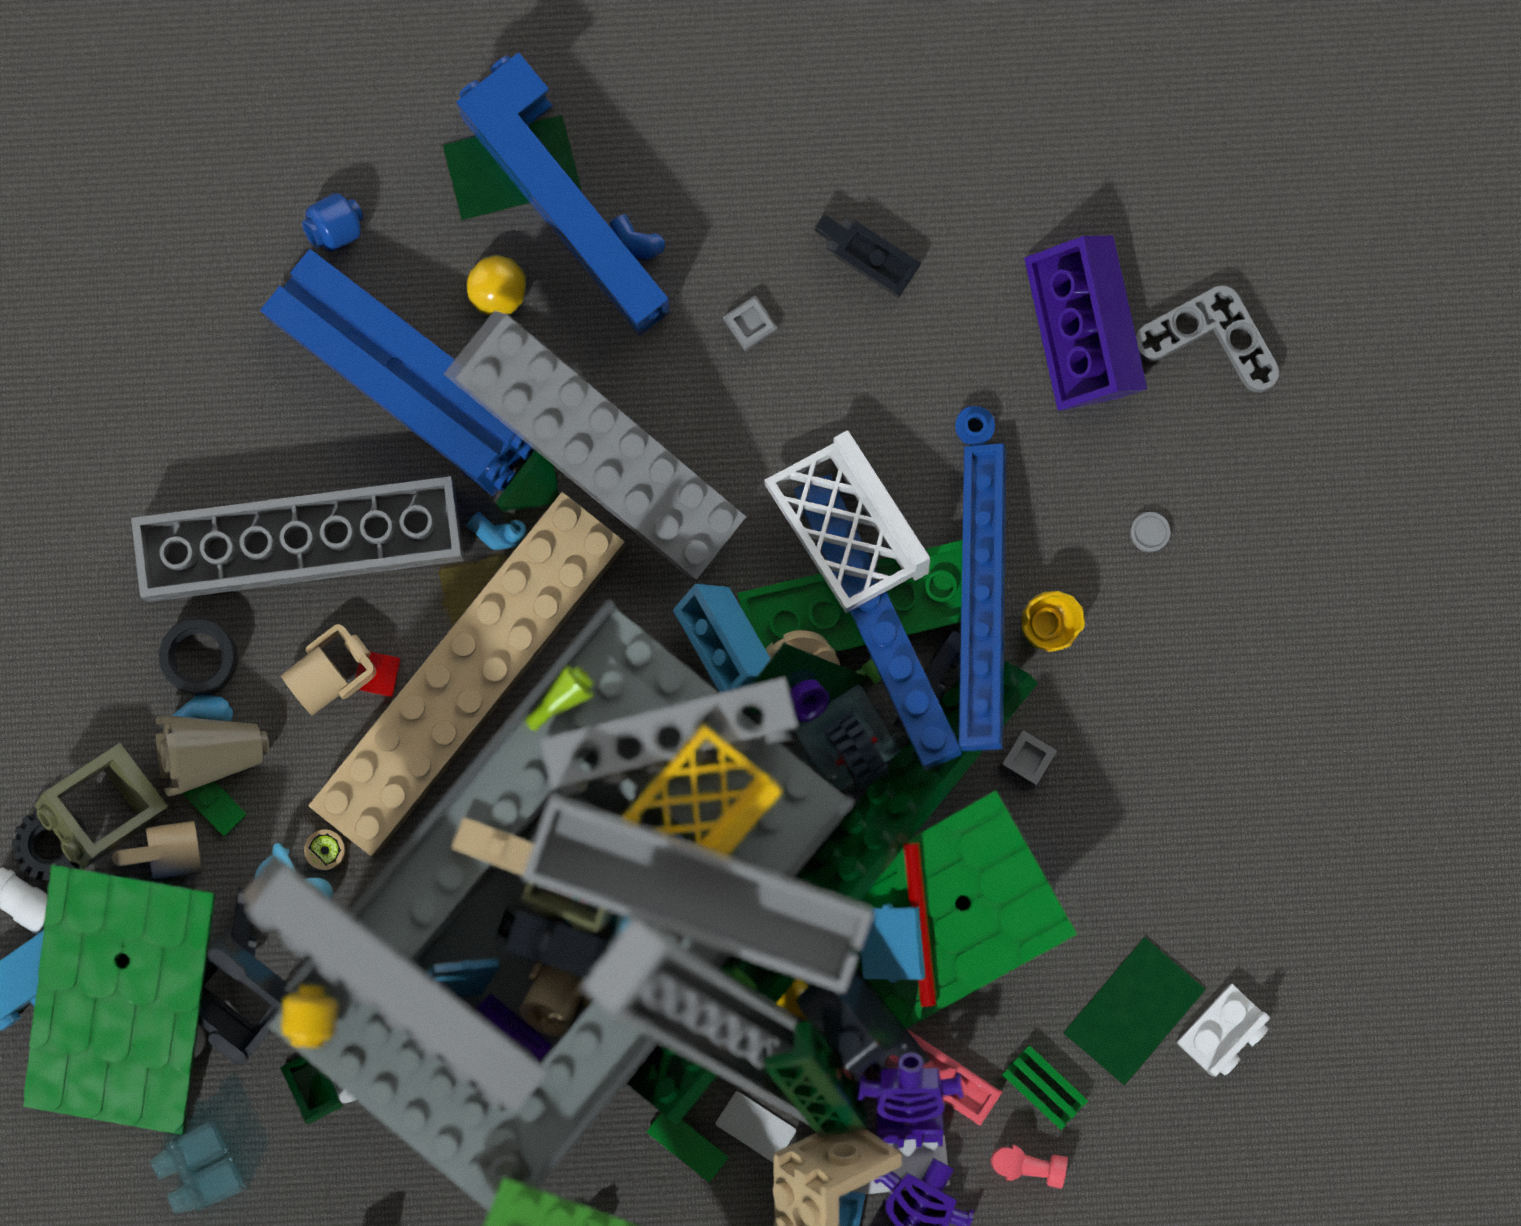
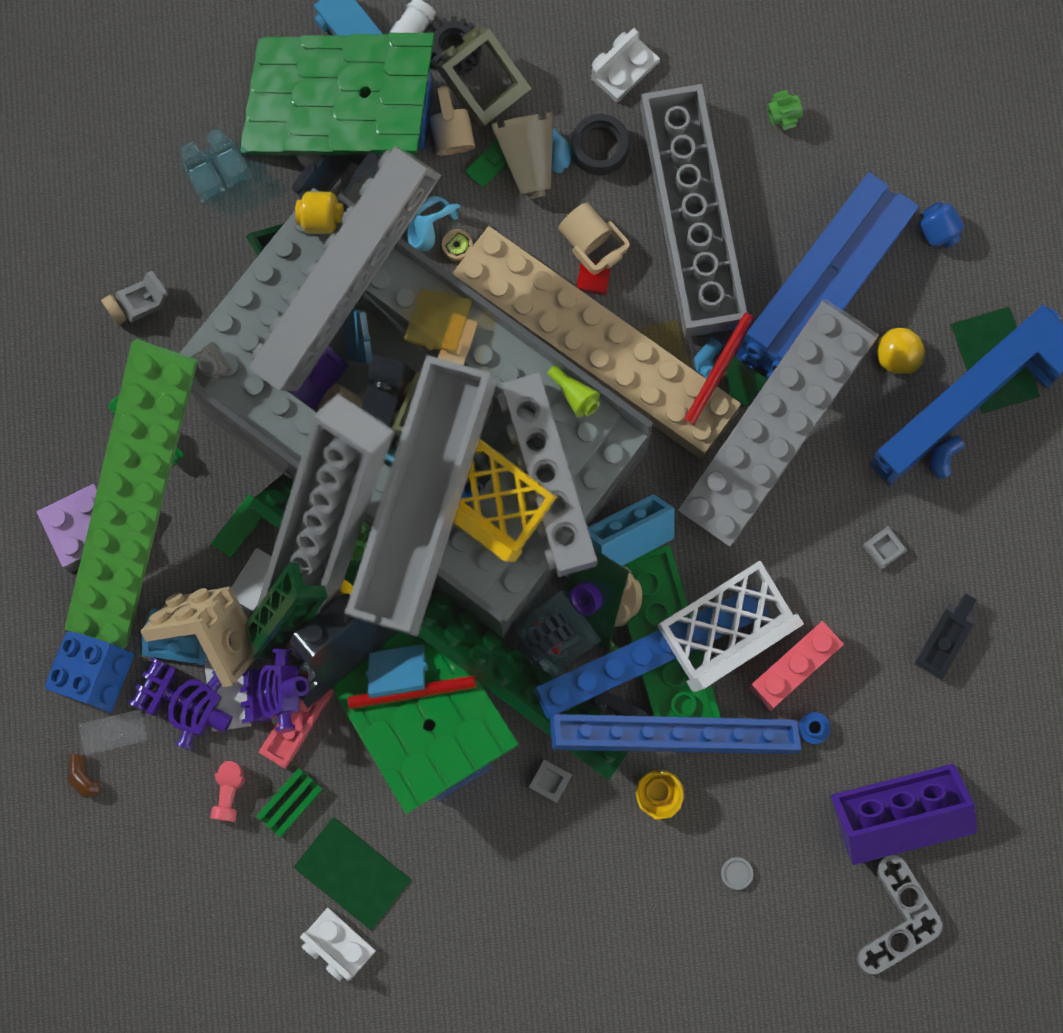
camera: 90 degrees right, 5 degrees down
(91, 620) = (623, 65): none -> white bracket
(166, 413) = (784, 110): none -> bright green gear
(460, 867) = (438, 320): none -> clear yellow piece
(518, 516) = (719, 369): none -> red bar
(898, 443) = (796, 666): none -> coral brick

